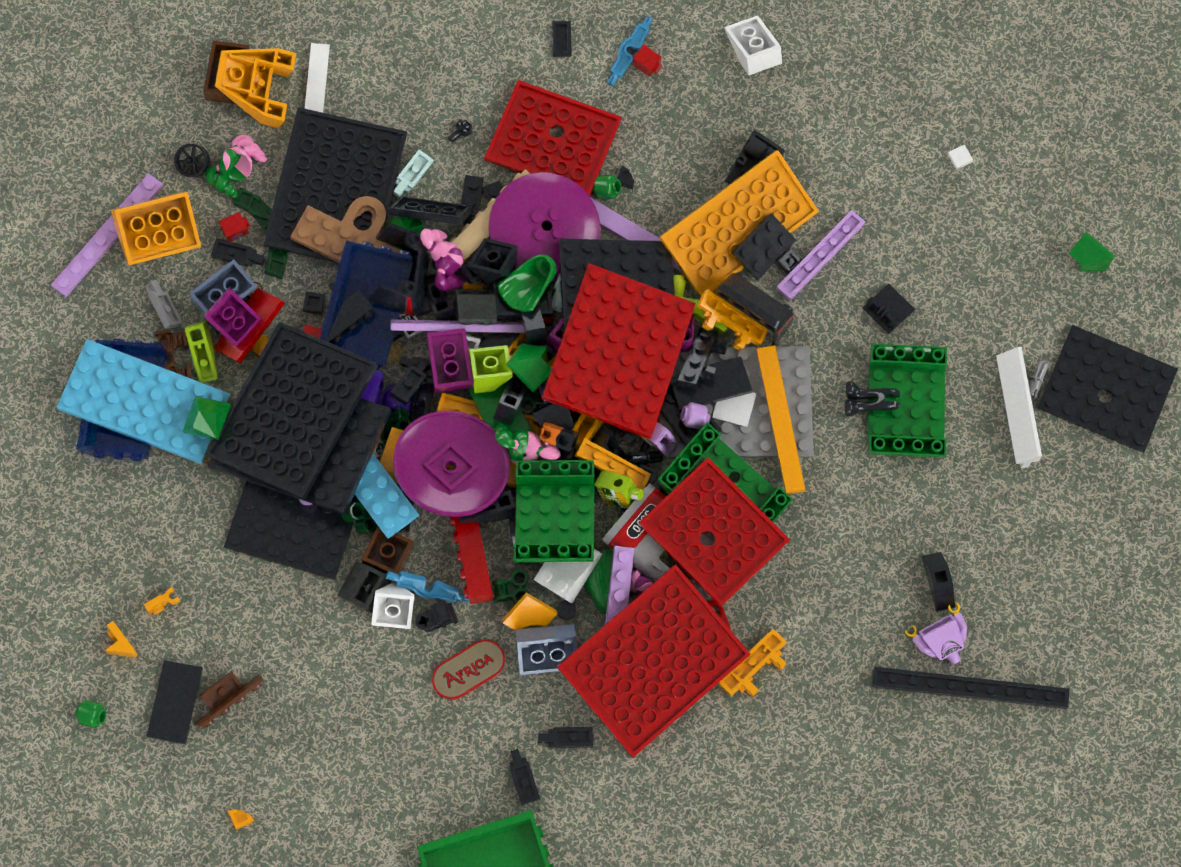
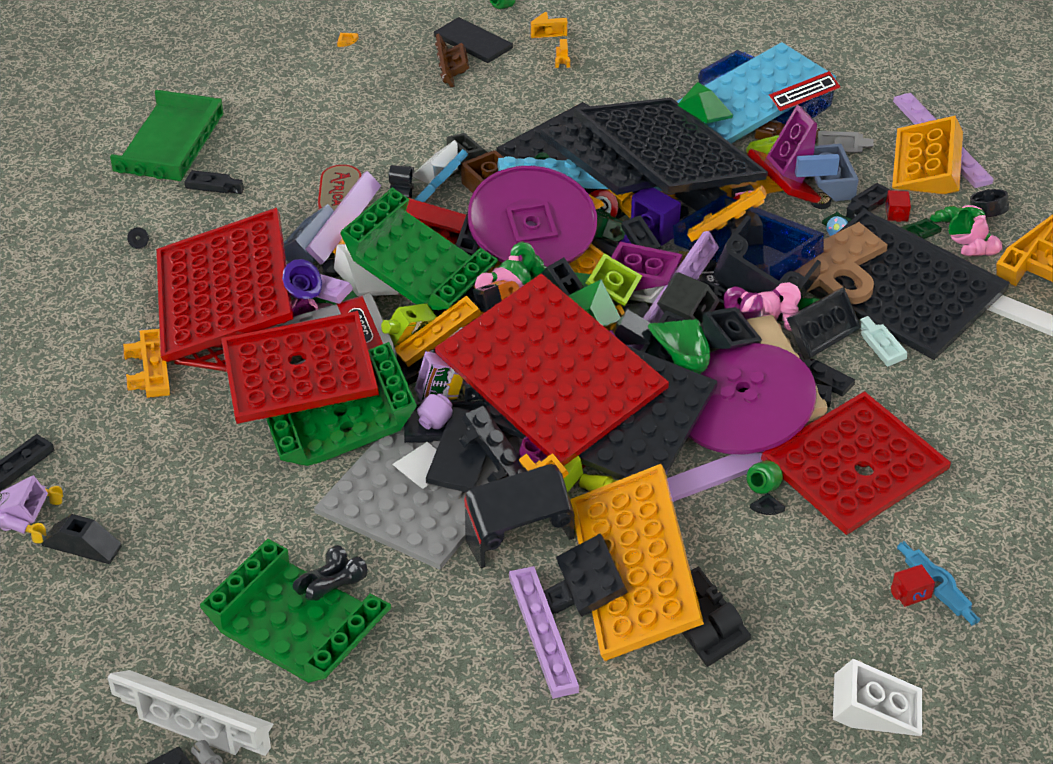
camera: 125 degrees right, 30 degrees down
(126, 353) = (804, 91): none -> sticker
(244, 290) = (817, 165): none -> medium blue tile
(289, 260) = (835, 224): none -> dark azure tile
(365, 332) = (734, 210): none -> light orange hinge
(463, 128) = (914, 398): black plate -> none
(514, 628) = (345, 213): none -> lavender tile
(561, 38) = (988, 529): black tile -> none
(568, 737) = (218, 217): black hinge -> none
(628, 783) = (142, 242): none -> black tile
(639, 577) = (302, 279): none -> dark purple hat
(780, 420) = (374, 490): light orange tile -> none
(888, 308) = (426, 663): black hinge -> none

